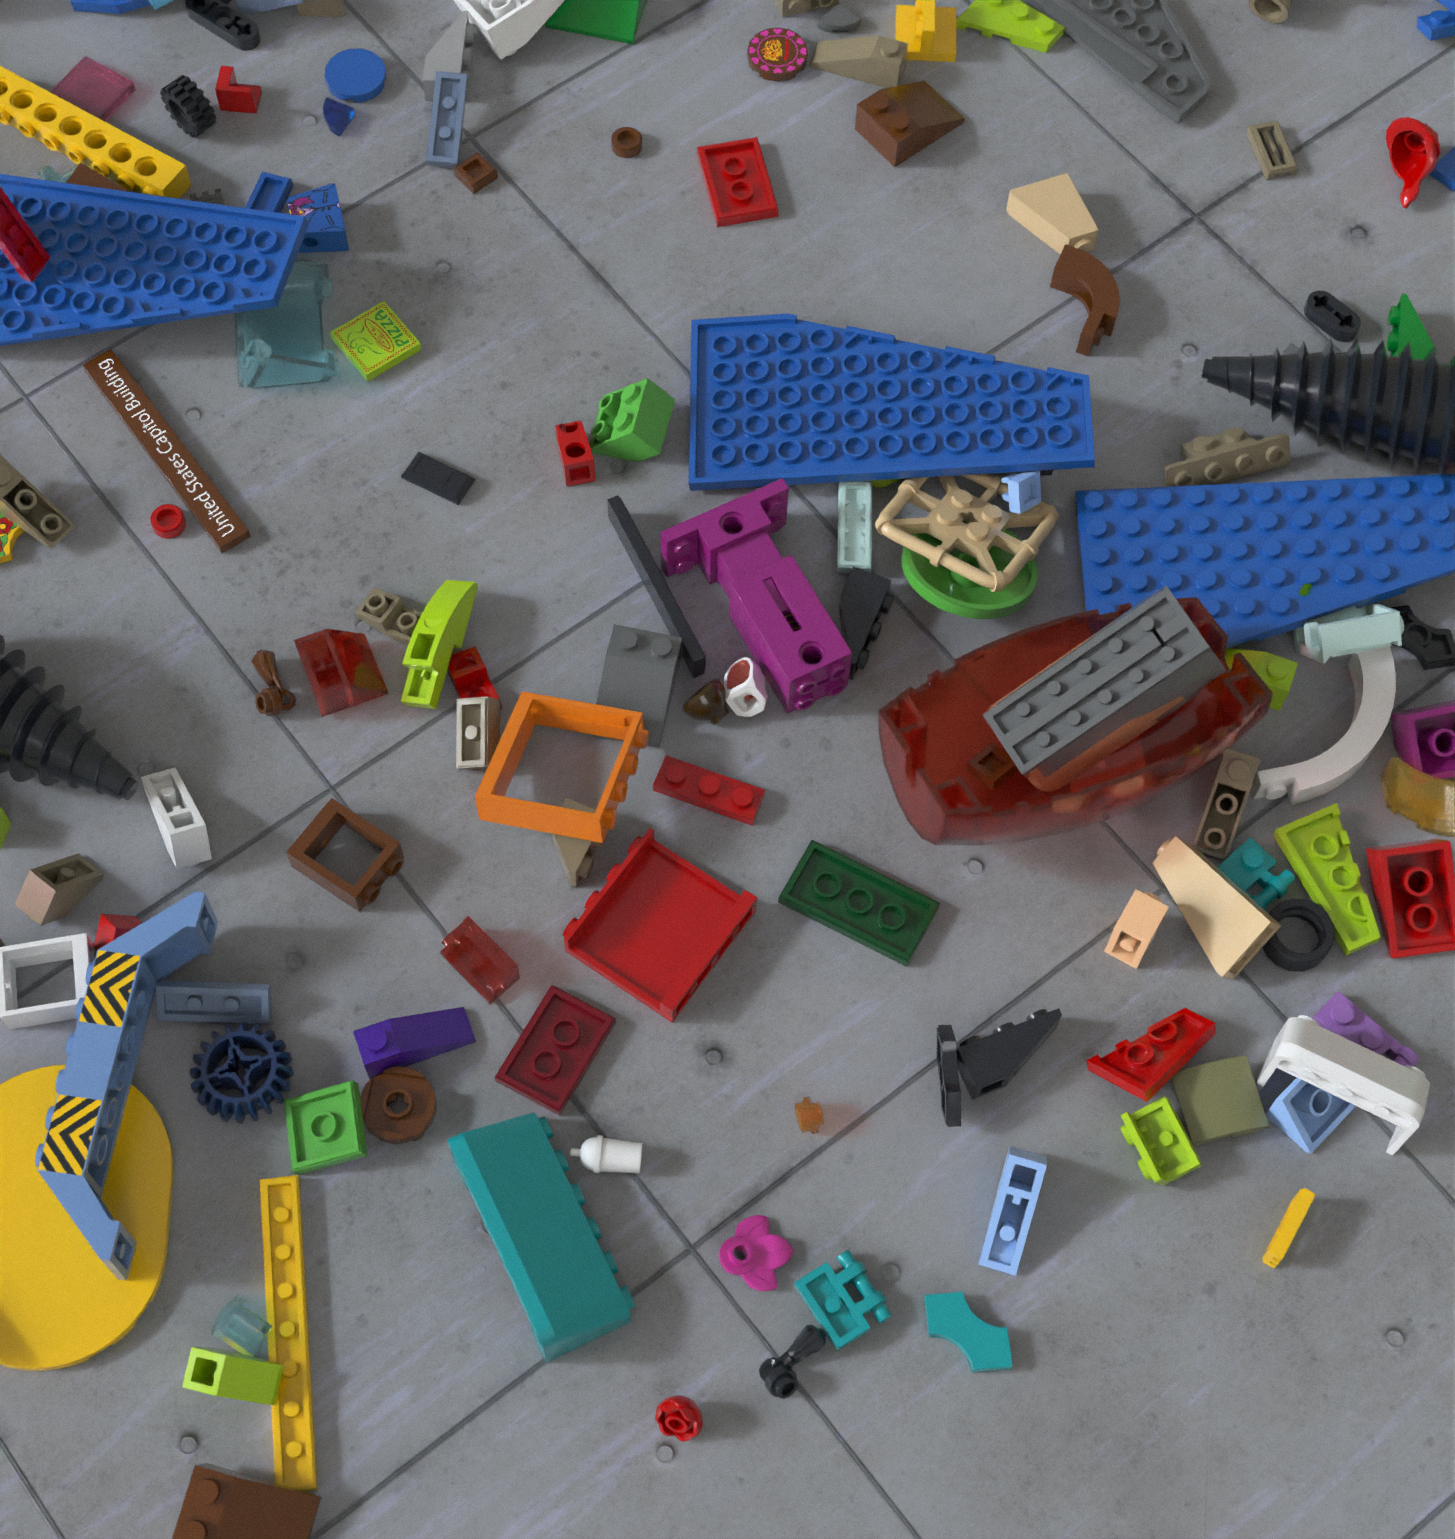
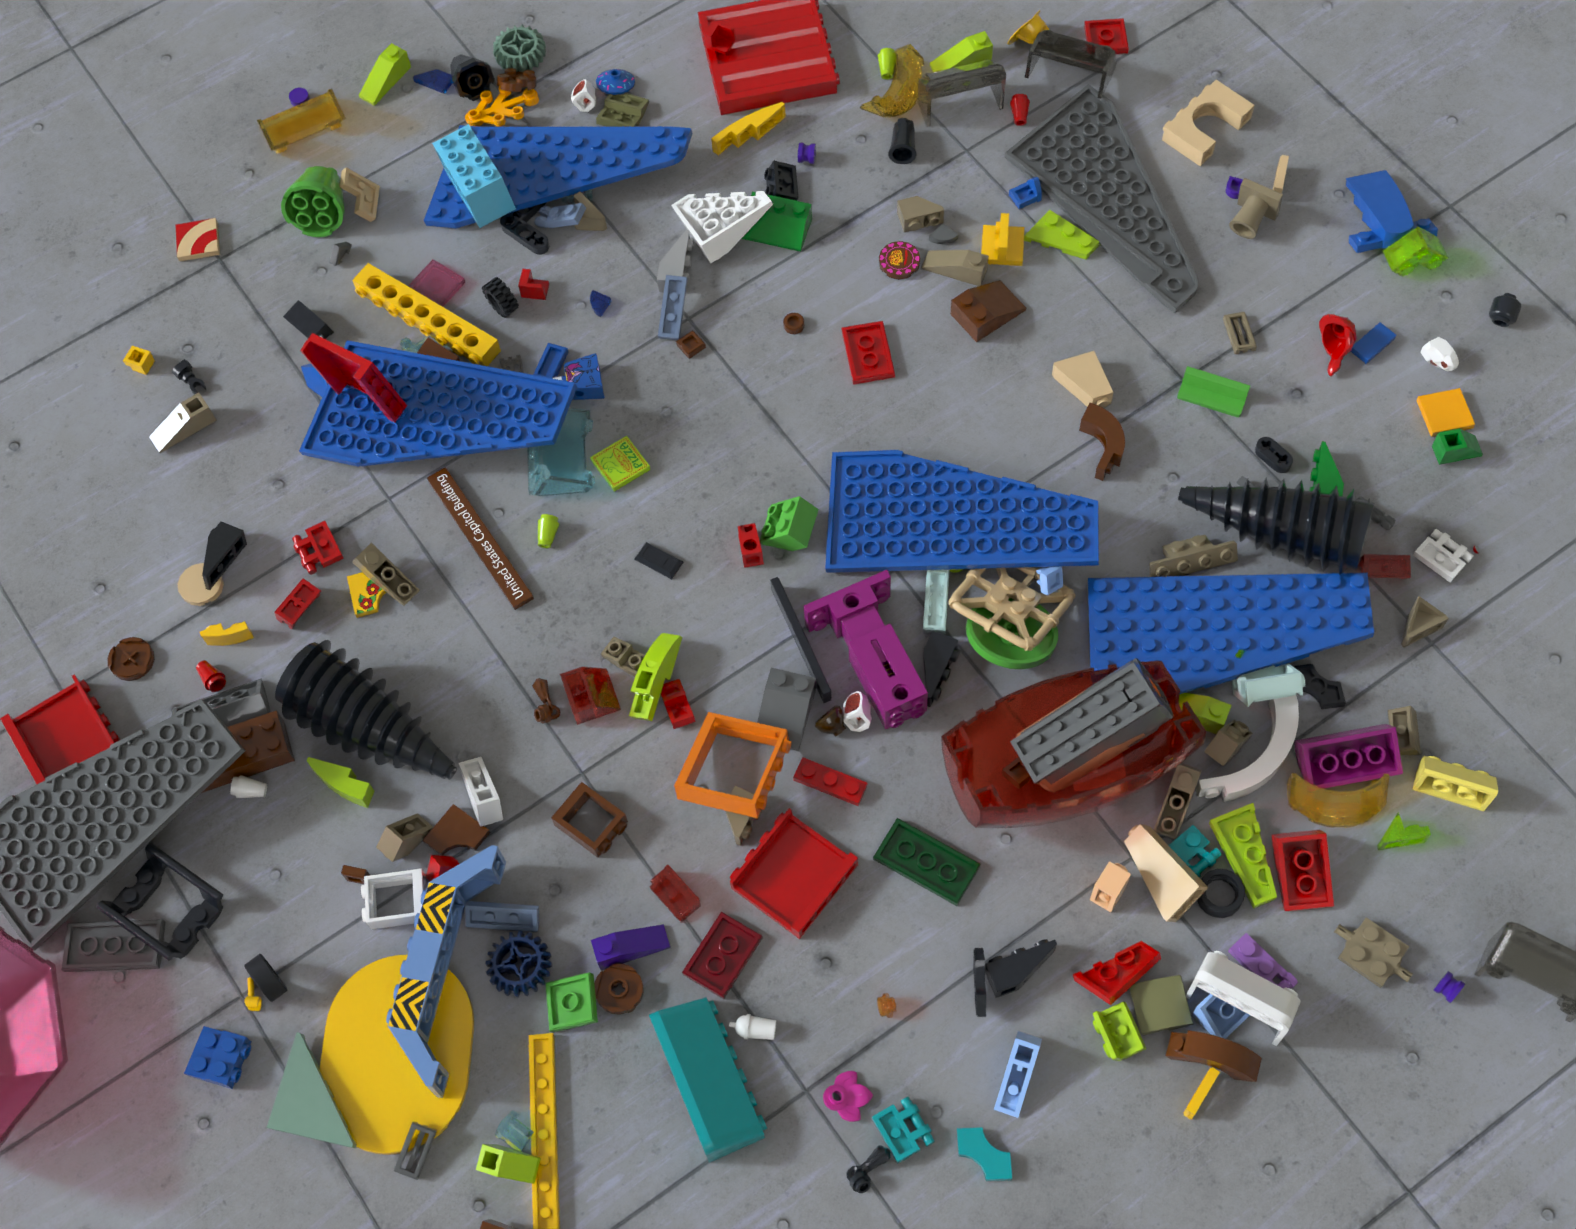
camera: 10 degrees right, 0 degrees up
(97, 1329) = (423, 1129): none -> dark grey tile
(139, 877) = (455, 831): none -> reddish brown tile
(168, 521) = (480, 587): red tile -> none
(268, 435) = (547, 530): none -> lime cone
(355, 75) = (612, 273): blue tile -> none
(477, 732) = (678, 738): dark tan slope -> none
(679, 1417) = (793, 1203): red plate -> none
(1240, 229) = (1213, 392): none -> bright green panel
(1295, 717) = (1228, 741): none -> dark tan slope
(1307, 1164) = (1216, 1052): none -> reddish brown arch

